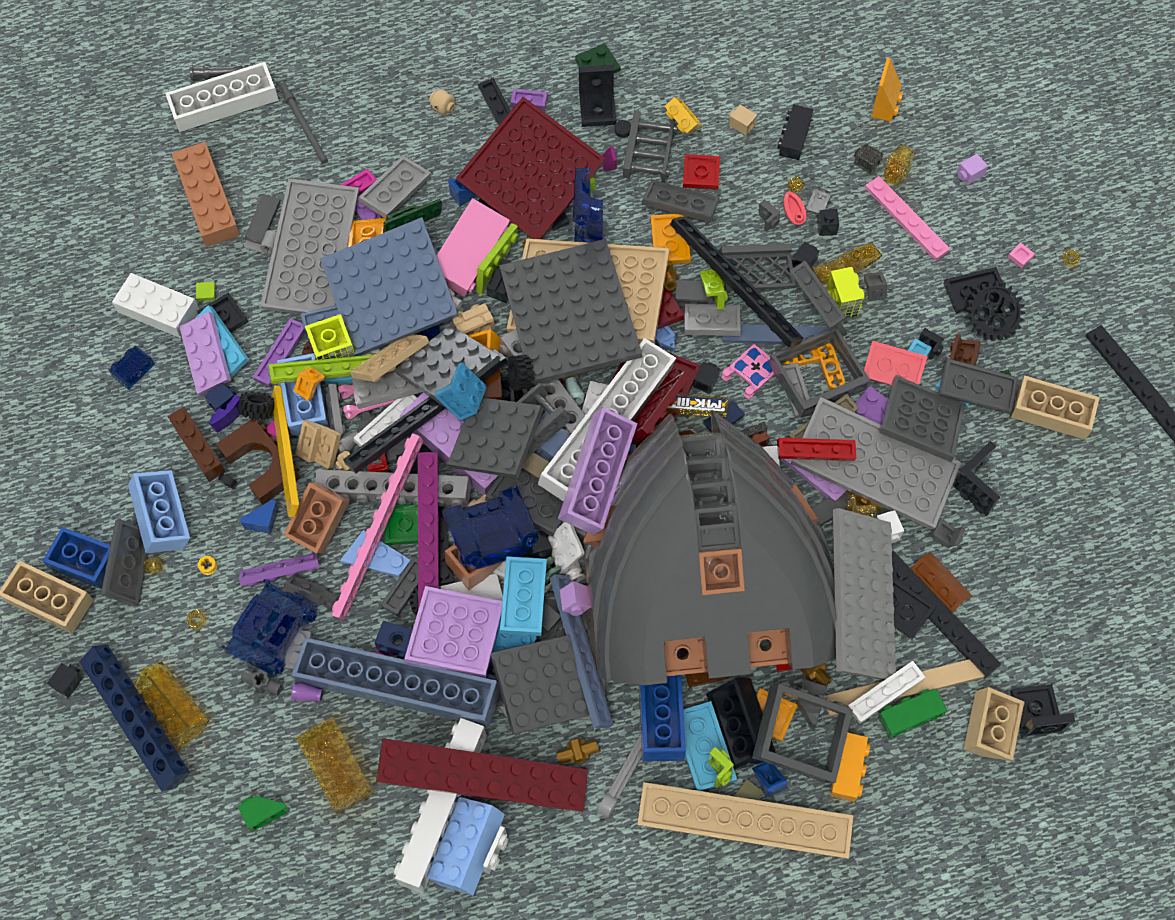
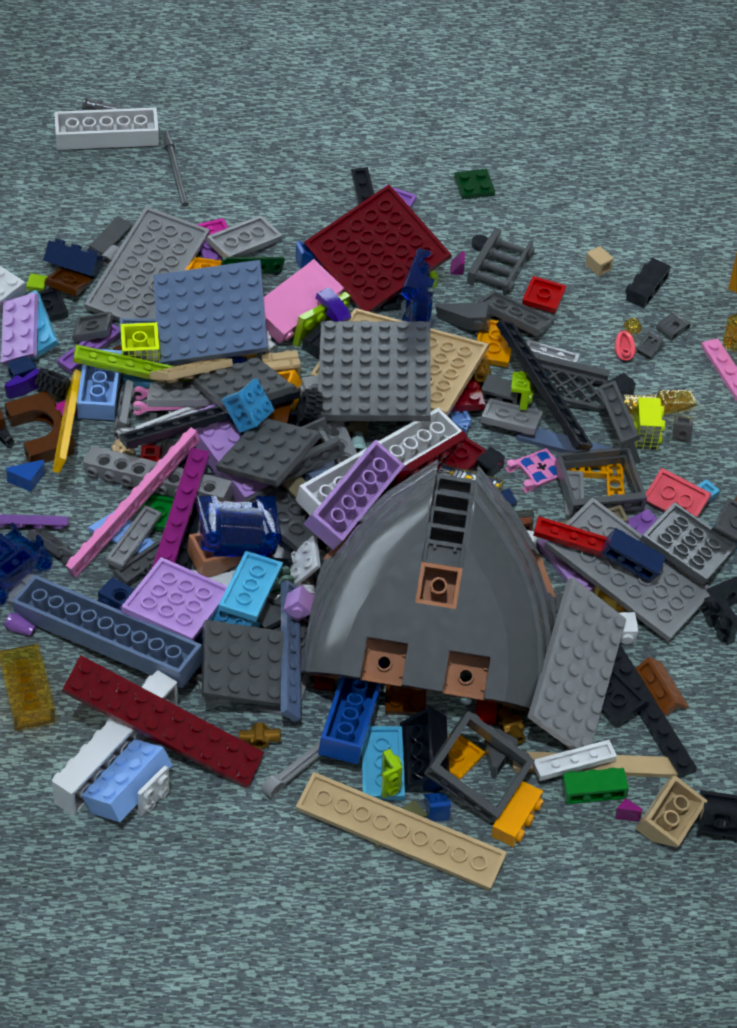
camera: 10 degrees right, 15 degrees down
(205, 194) = (64, 201): nougat brick -> none
(233, 255) = (73, 257): none -> dark blue brick
(236, 282) = (68, 281): none -> reddish brown tile
(276, 329) = (92, 326): none -> dark grey tile
(307, 382) = (106, 369): light orange bracket -> none
(316, 517) = (78, 482): nougat brick -> none
(318, 444) = (100, 426): tan slope -> none
(389, 562) = (133, 537): none -> light grey tile
(442, 101) = (313, 180): tan head -> none
(510, 246) = (336, 308): none -> dark purple slope
(597, 94) = (463, 206): black bracket -> none
(638, 217) = (465, 315): none -> dark grey slope
(683, 115) = (542, 245): yellow plate -> none
(729, 237) = (539, 348): none -> light grey plate
(769, 214) = (598, 344): dark grey bracket -> none
(828, 222) = (653, 363): black brick -> none
(832, 173) = (673, 326): none -> dark grey piece
(868, 158) = (711, 321): clear smoke brick -> none
(879, 453) = (633, 555): none -> dark blue brick
(933, 341) = (723, 484): black bracket -> none
(947, 534) = (680, 647): dark grey bracket -> none
(952, 731) = (628, 811): none -> magenta slope

